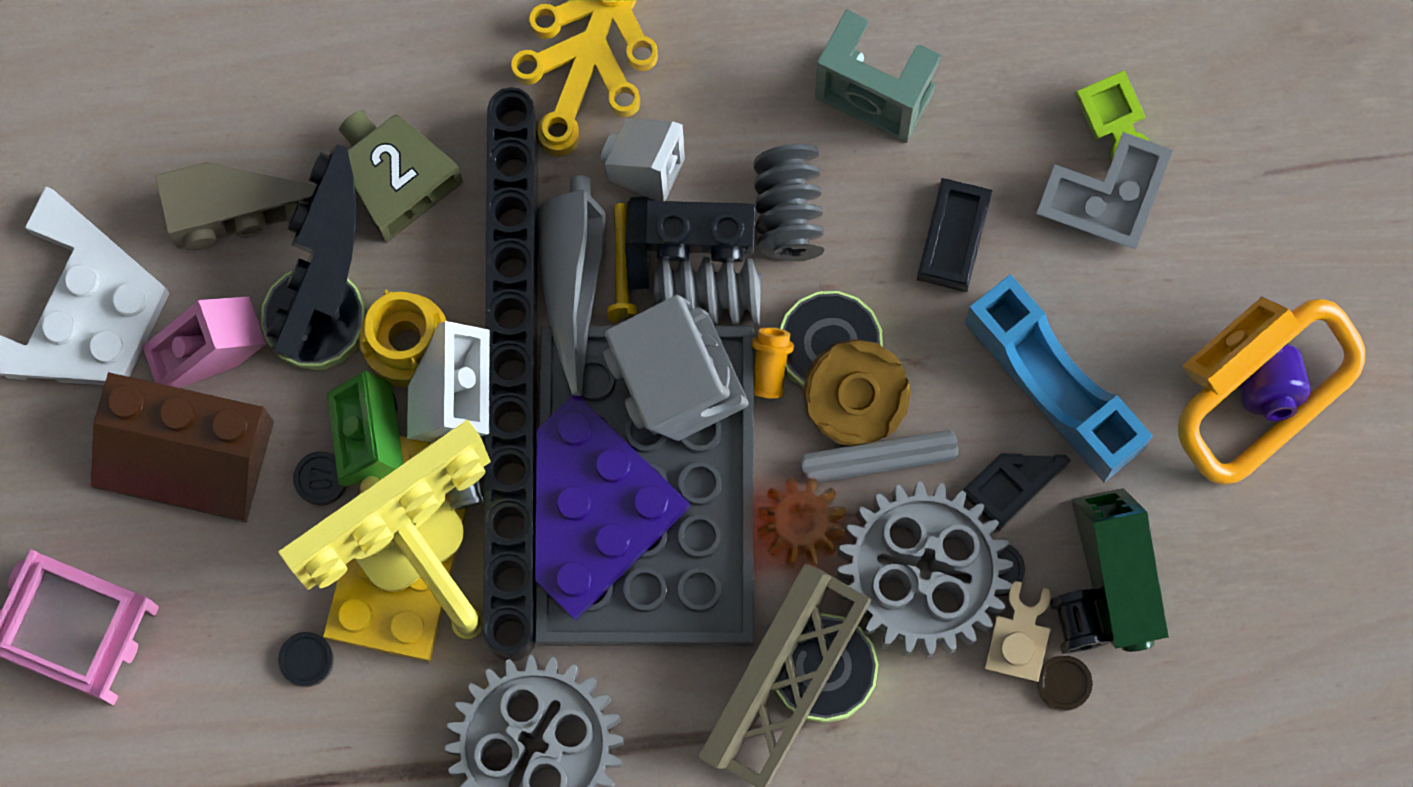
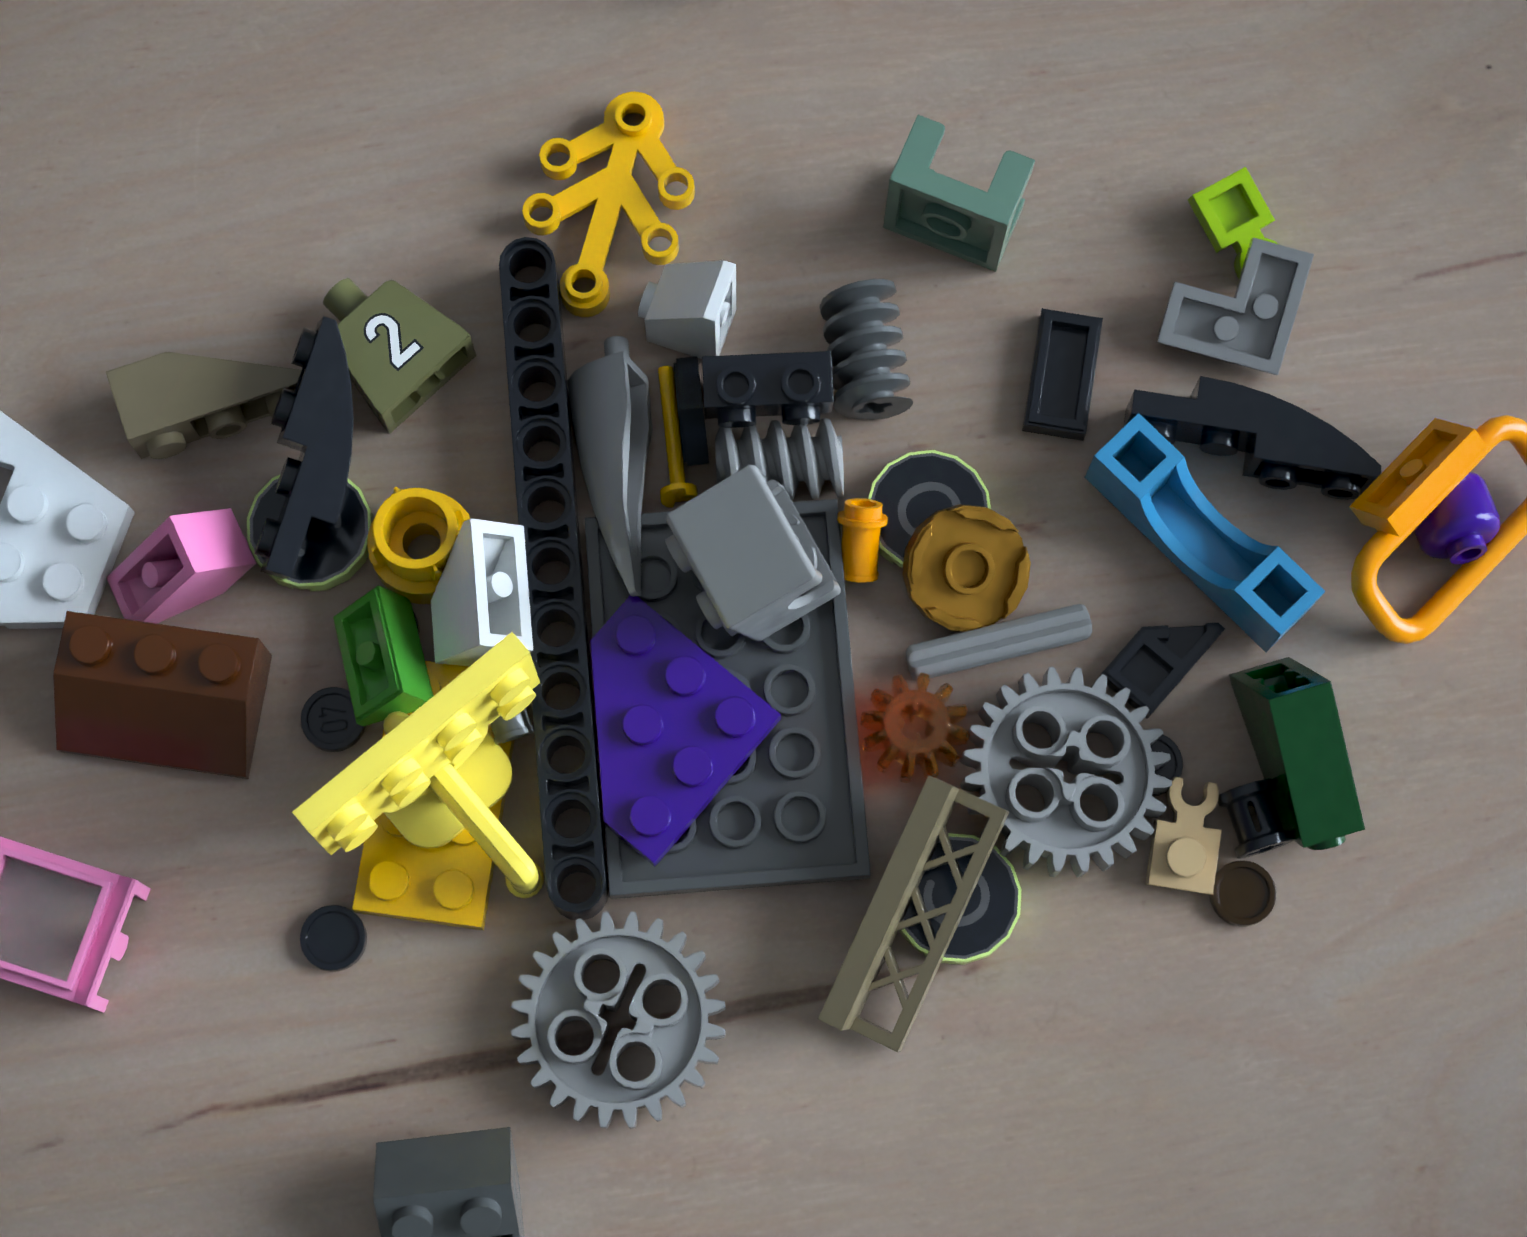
camera: 10 degrees left, 0 degrees up
(1132, 304) = (1279, 439): none -> black slope

